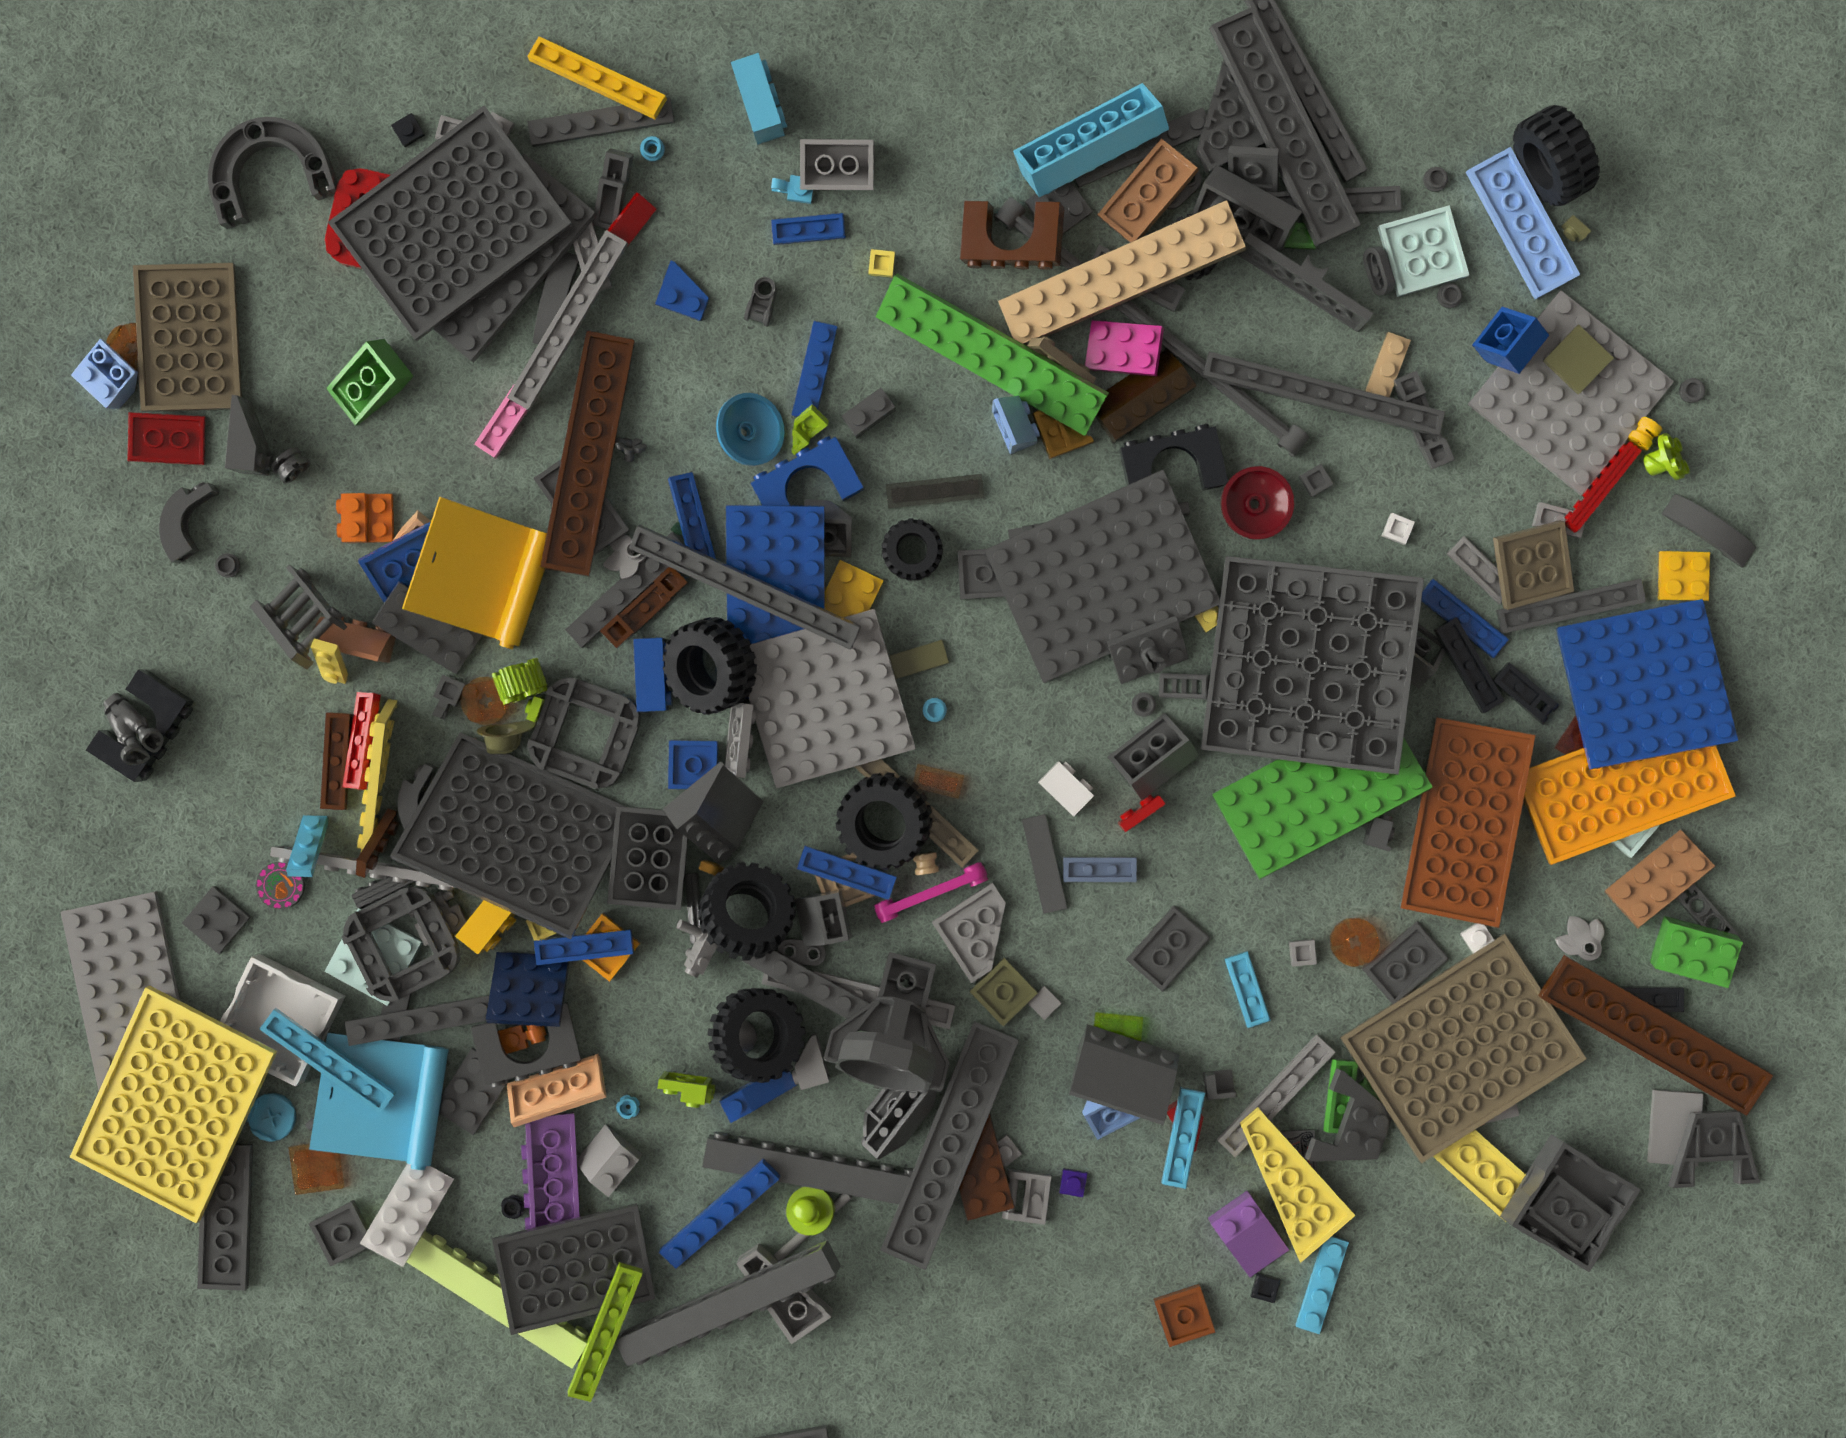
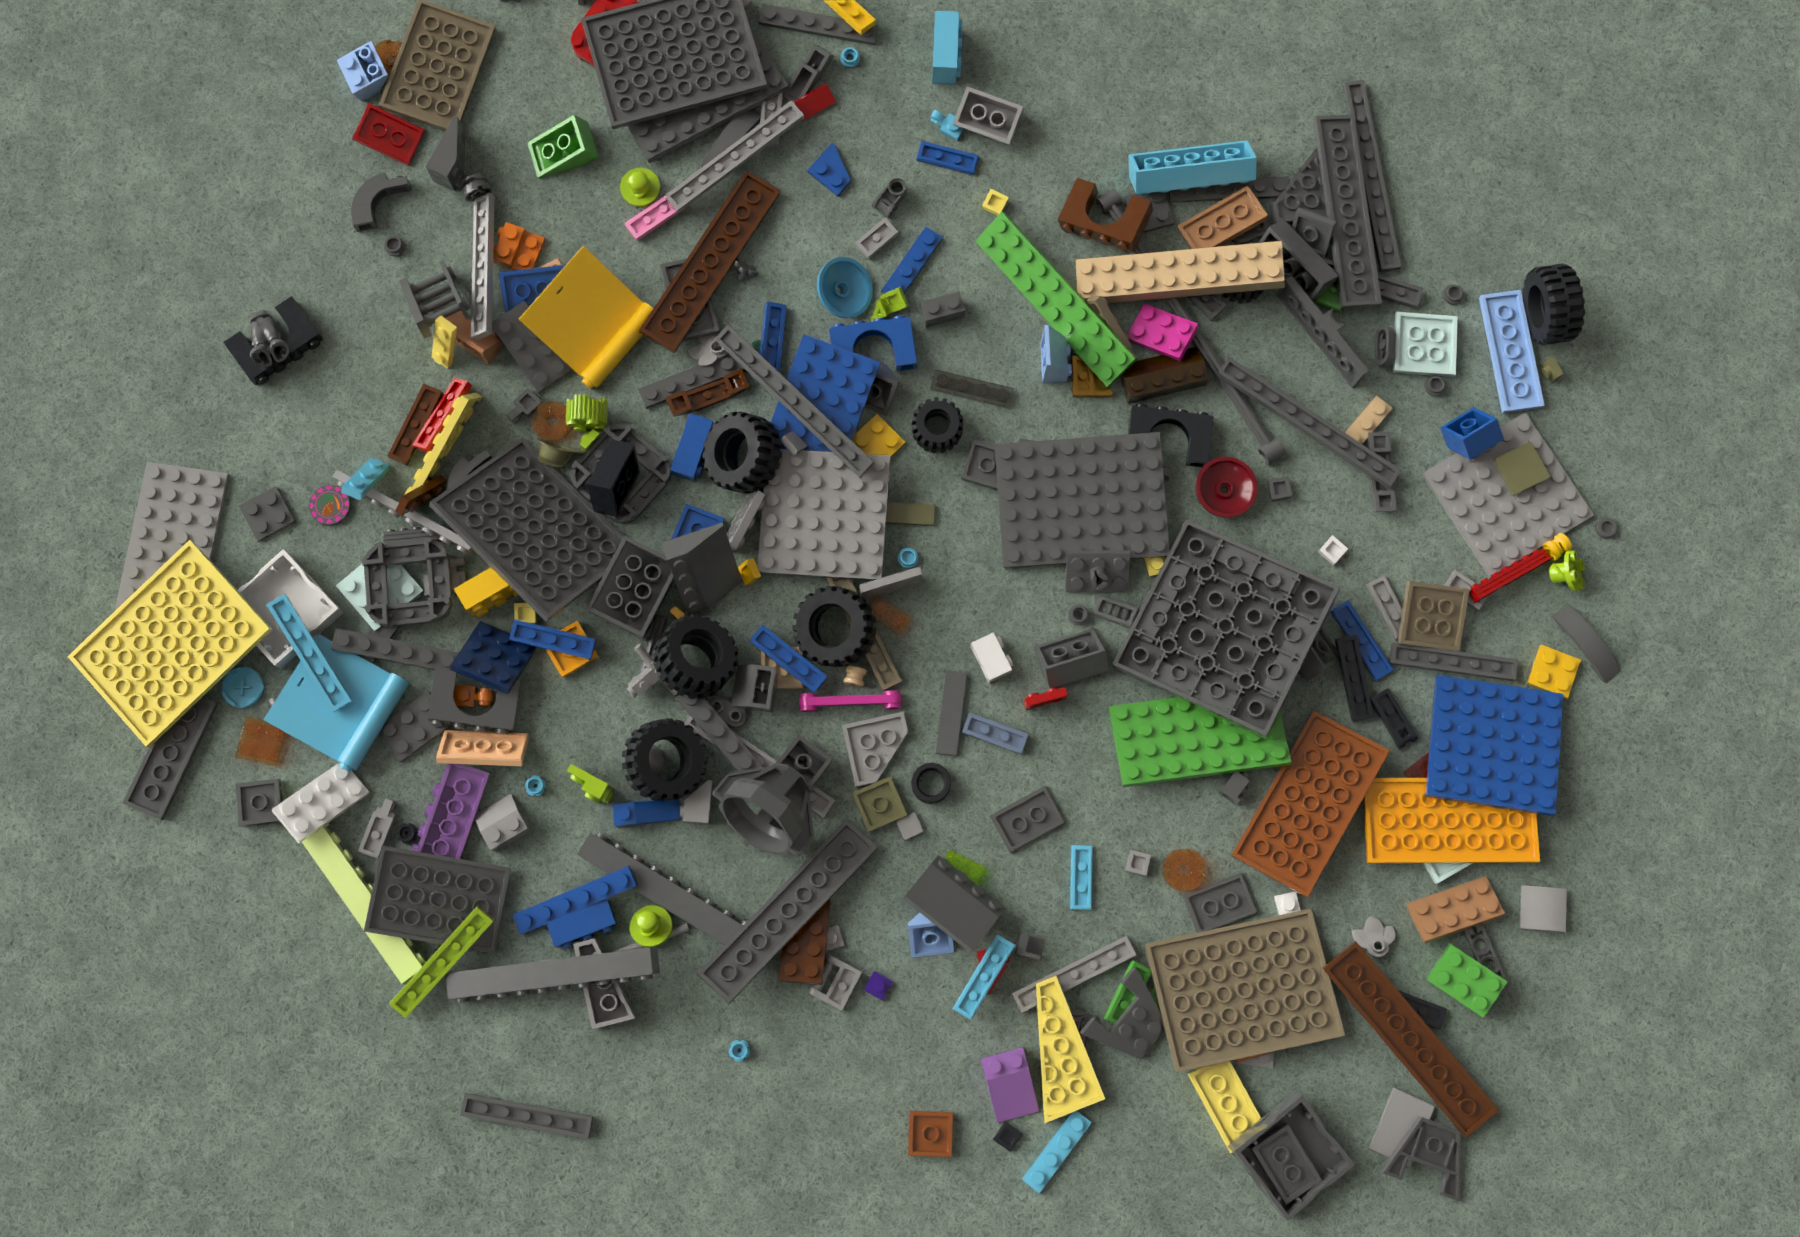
camera: 15 degrees right, 10 degrees down
(336, 557) = (482, 267): none -> light grey plate
(474, 394) = (640, 187): none -> lime plate
(480, 1215) = (378, 829): none -> light grey hinge
(579, 746) = (613, 477): none -> black brick
(737, 1236) = (582, 924): none -> blue brick
(762, 633) = (793, 443): none -> light grey tile
(763, 355) = (876, 238): none -> light grey plate
(767, 790) = (749, 571): none -> yellow plate
(894, 1119) = (753, 873): dark grey wedge -> none
(926, 749) = (891, 583): none -> light grey tile
(952, 1309) = (735, 1045): none -> medium azure plate
(1050, 967) = (915, 783): none -> black tyre
(1753, 842) = (1543, 908): none -> light grey slope

